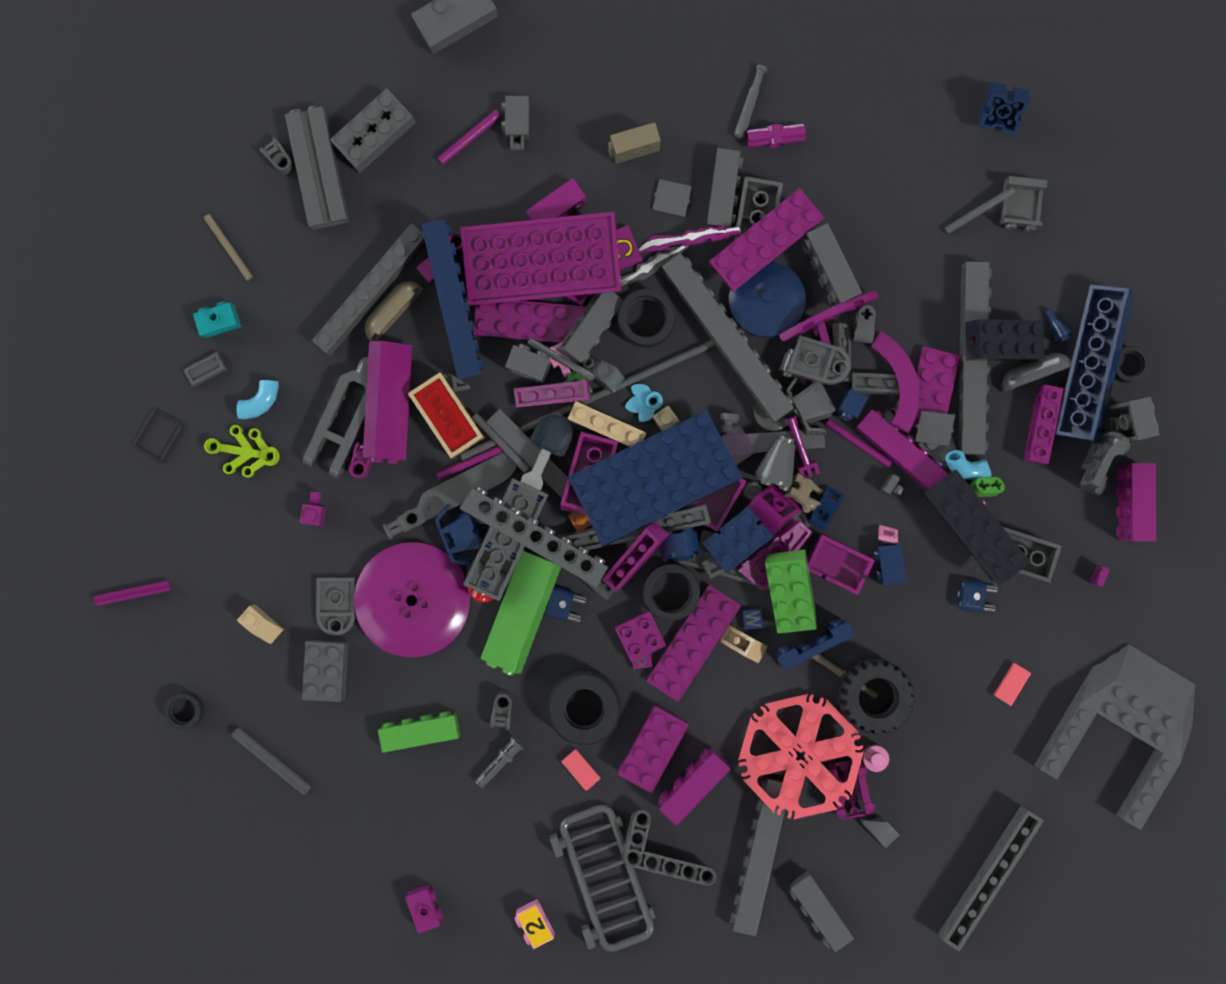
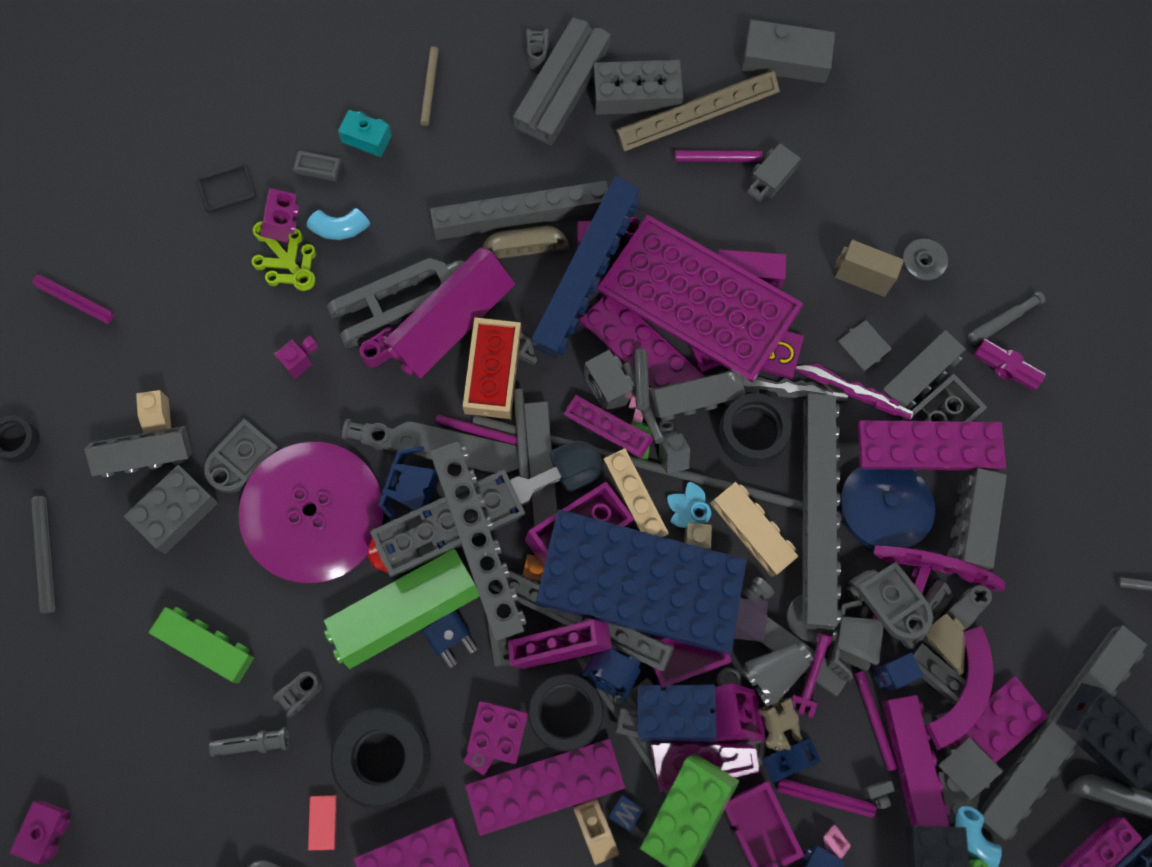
camera: 40 degrees right, 15 degrees down
(213, 428) = (278, 215): none -> magenta brick
(271, 653) = (138, 451): none -> dark grey brick
(428, 114) = (697, 110): none -> dark tan plate
(548, 345) = (641, 379): none -> dark grey axle
(666, 93) = (927, 251): none -> dark grey dish
(695, 384) = (754, 529): none -> tan brick
(863, 513) = (826, 797): none -> magenta axle
(868, 358) = (949, 640): none -> dark tan slope

